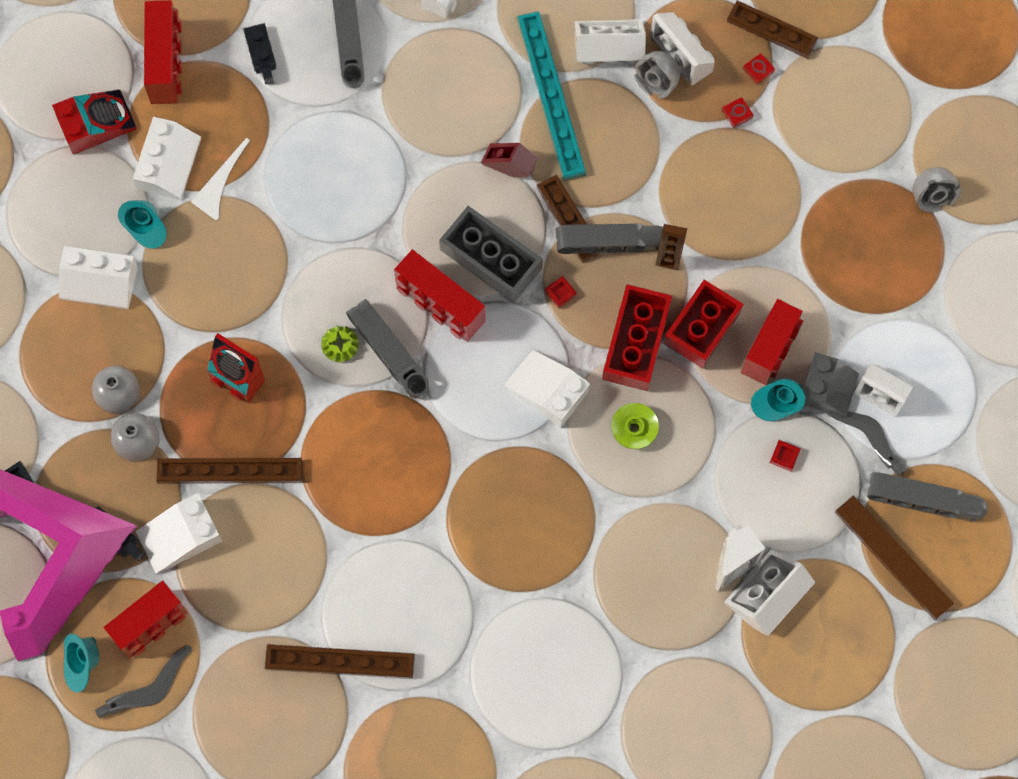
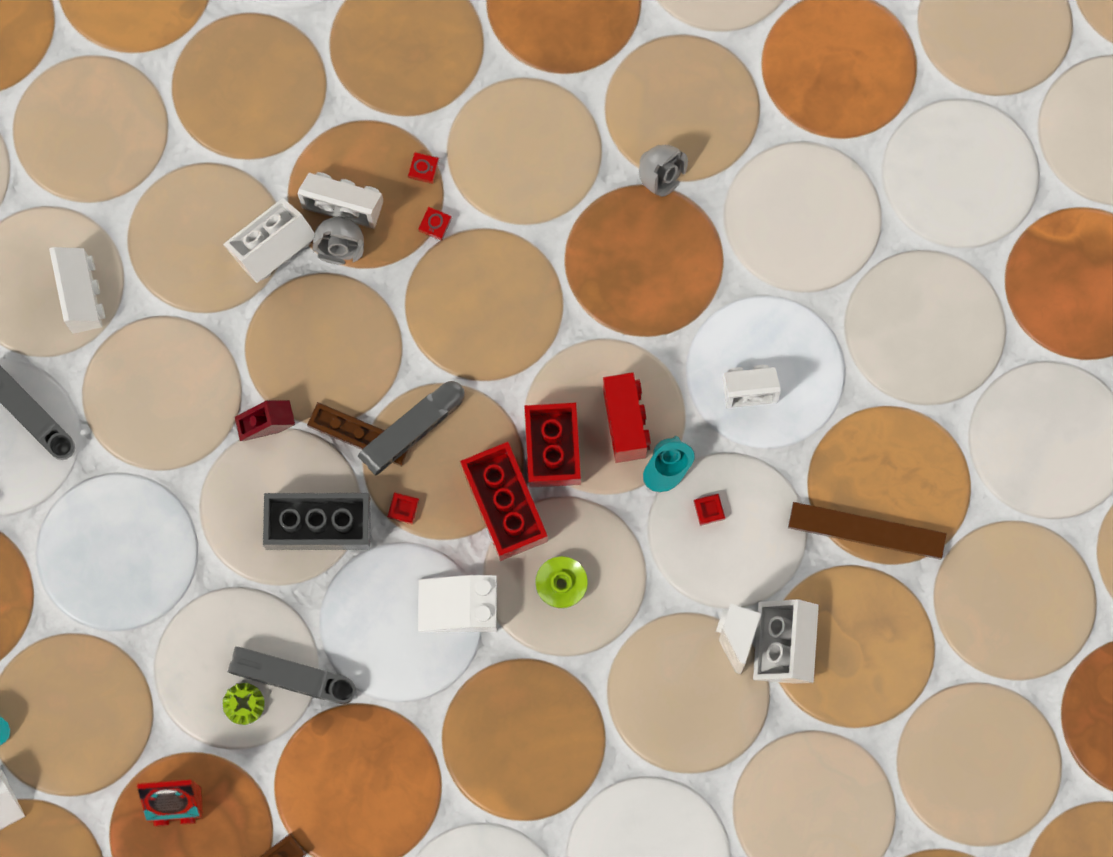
camera: 35 degrees left, 5 degrees up
(209, 196) = (16, 656): white sticker -> none
(439, 296) = (301, 595): red brick -> none
(551, 96) = (255, 330): teal tile -> none
(671, 246) = (475, 399): reddish brown tile -> none
(772, 29) = (407, 121): reddish brown tile -> none
(830, 385) = (702, 418): dark grey slope -> none
(876, 437) = (767, 430): dark grey piece -> none
(926, 497) = (856, 457): dark grey piece -> none

